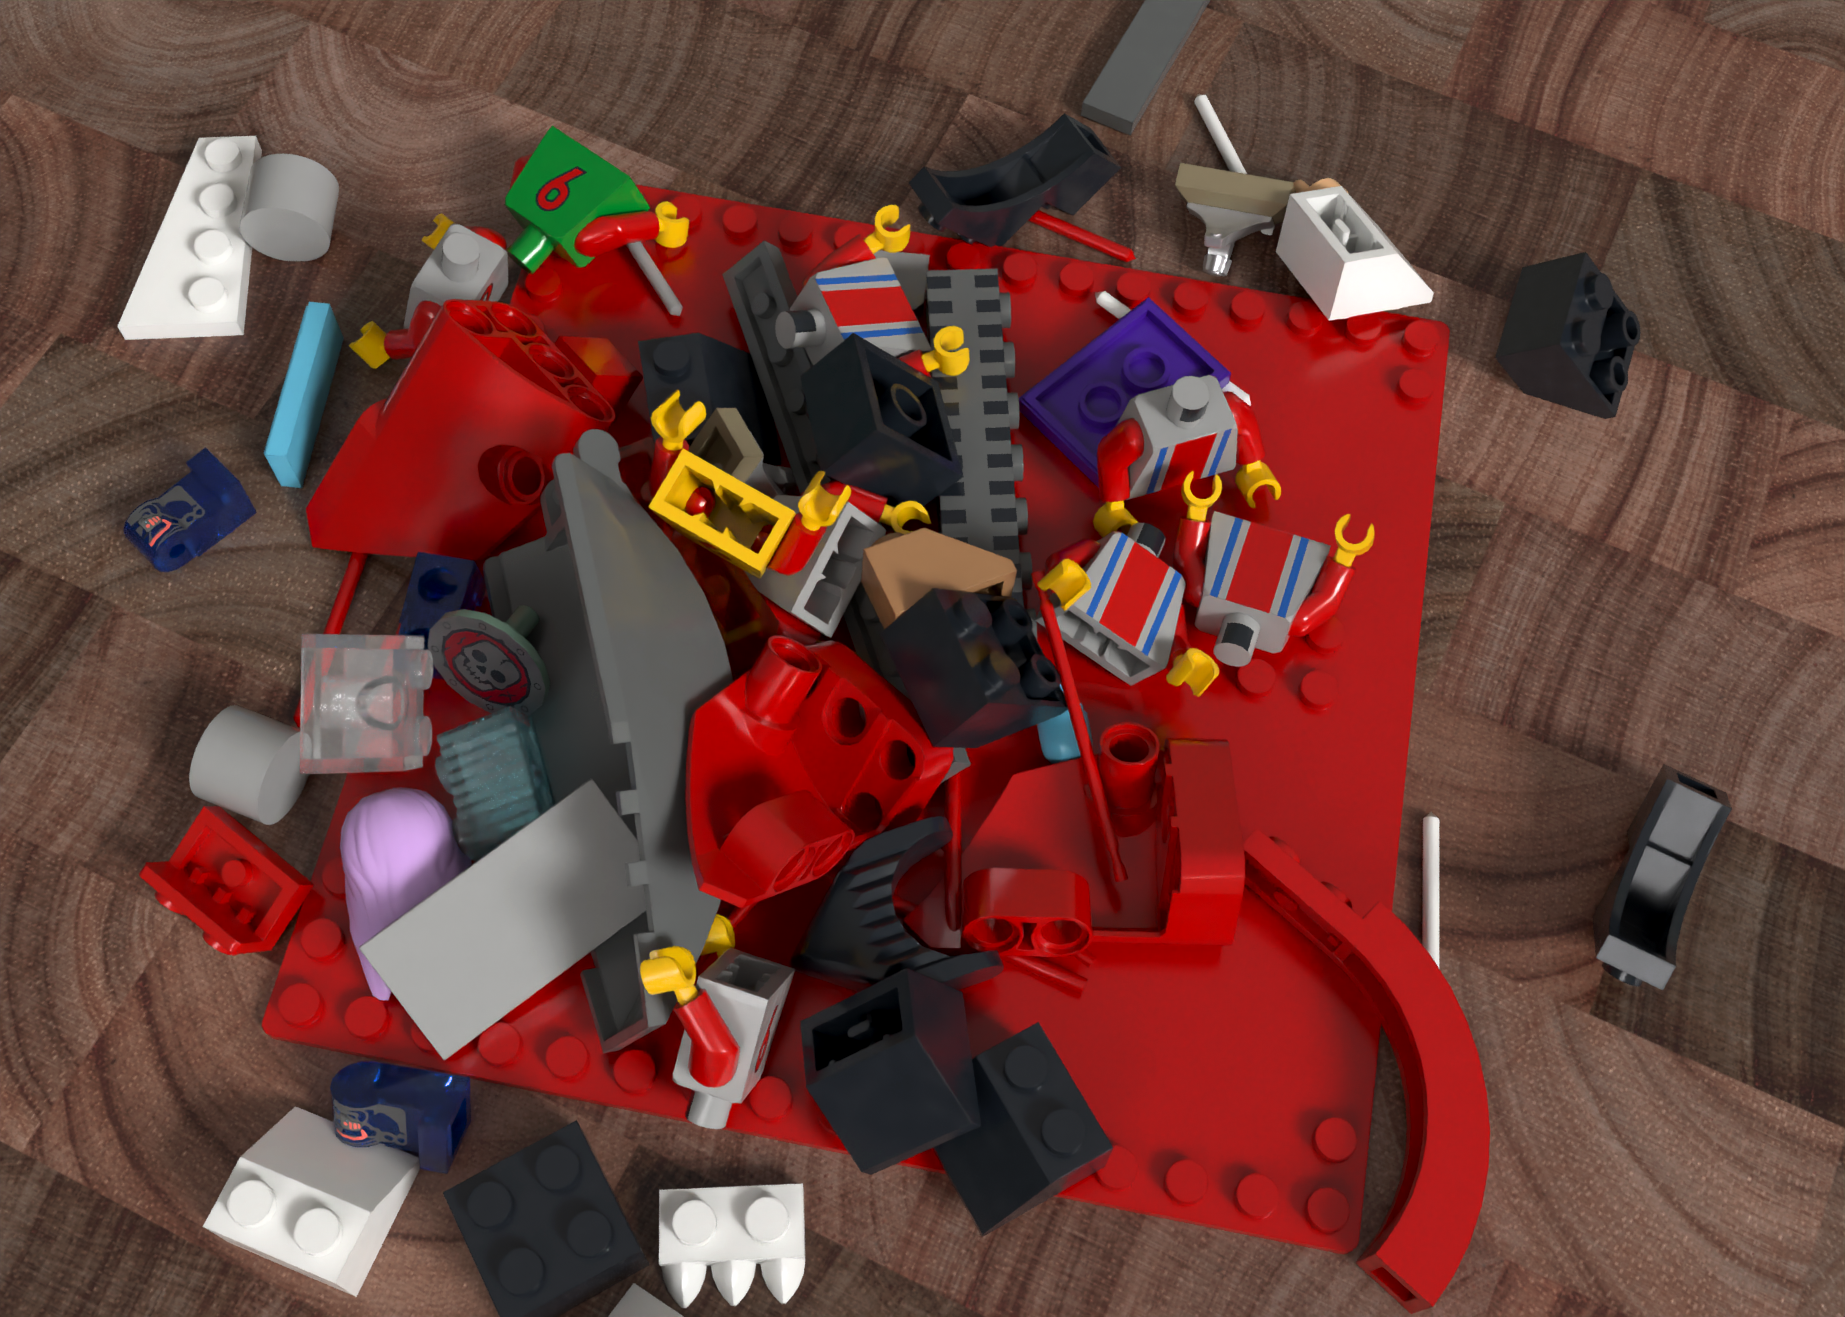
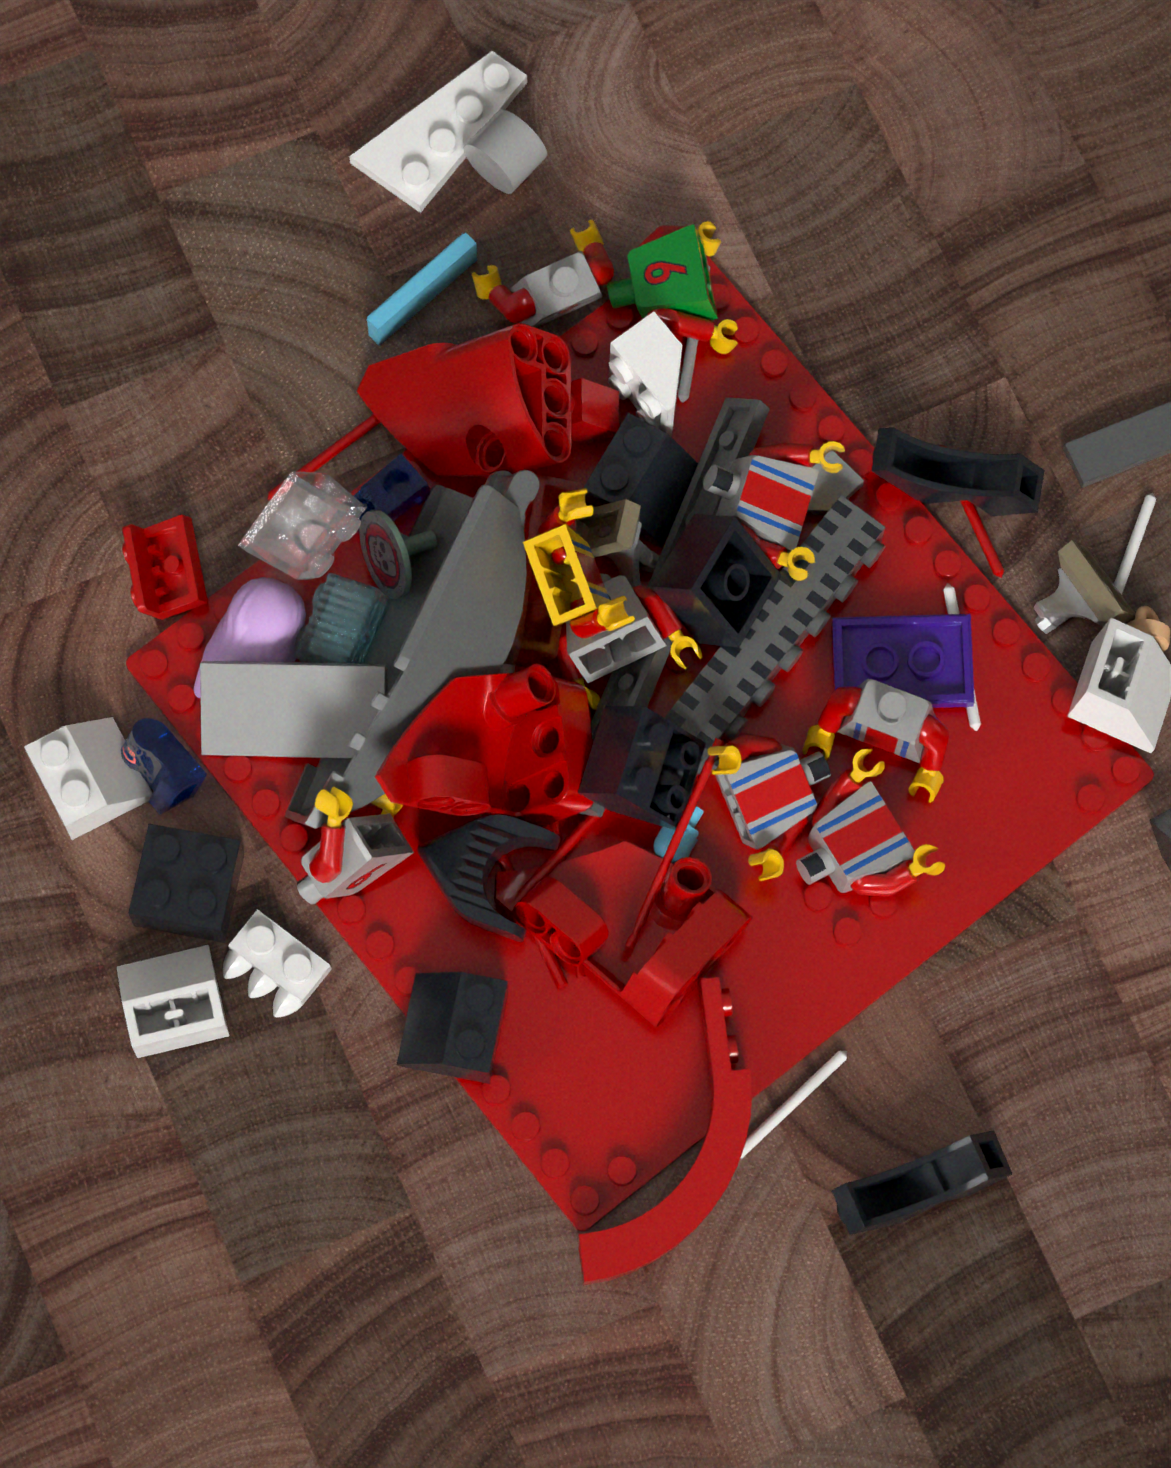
camera: 40 degrees right, 10 degrees up
(189, 514) = (300, 320): clear blue leg -> none
(248, 765) = (223, 507): light grey piece -> none
(624, 286) = (647, 370): none -> white slope
(893, 1069) = (415, 943): black slope -> none
(907, 566) = (664, 690): medium nougat slope -> none

